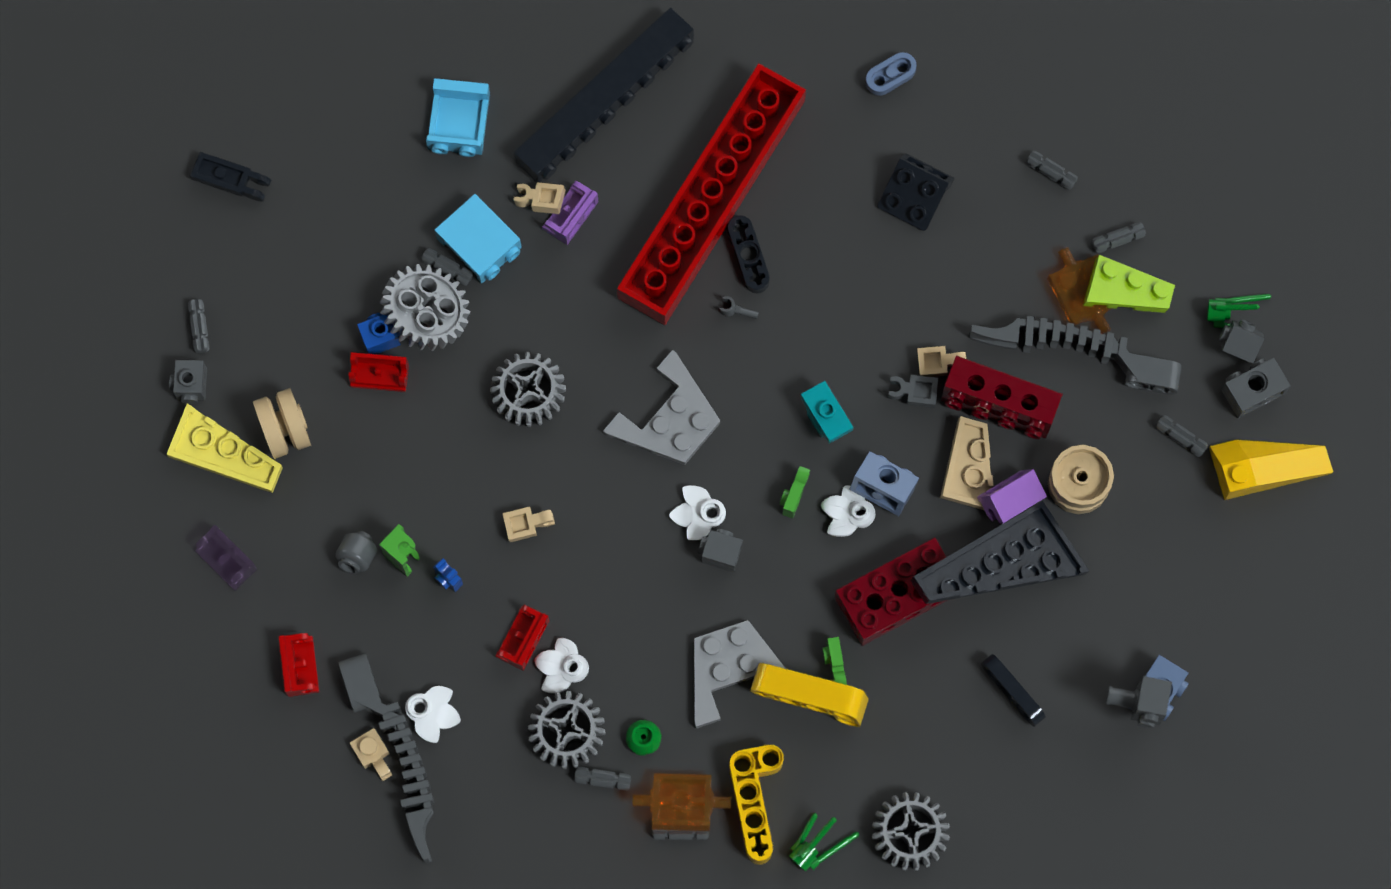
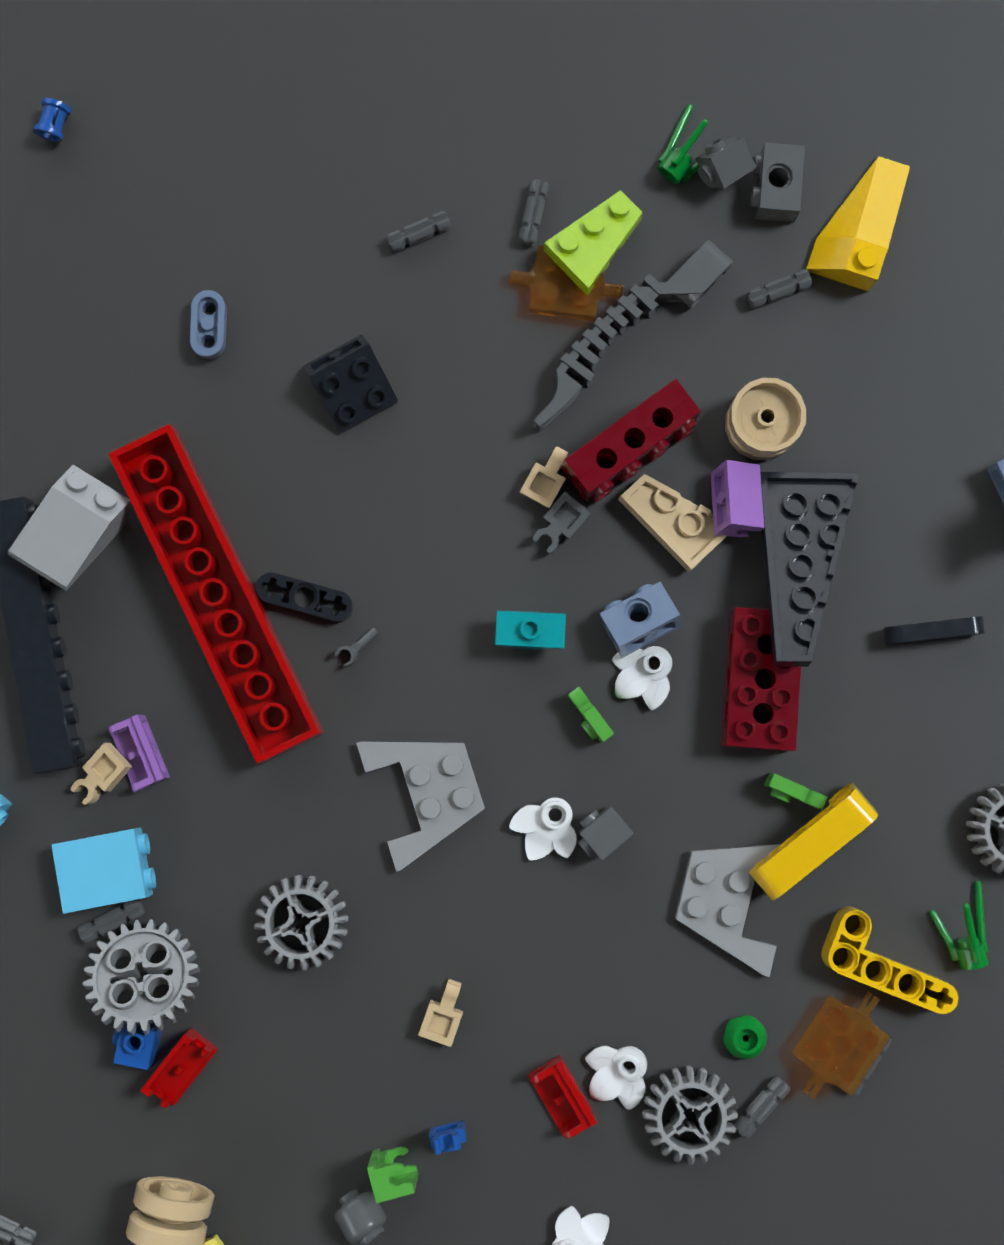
camera: 55 degrees left, 10 degrees up
(693, 72) = (70, 527): none -> light grey slope

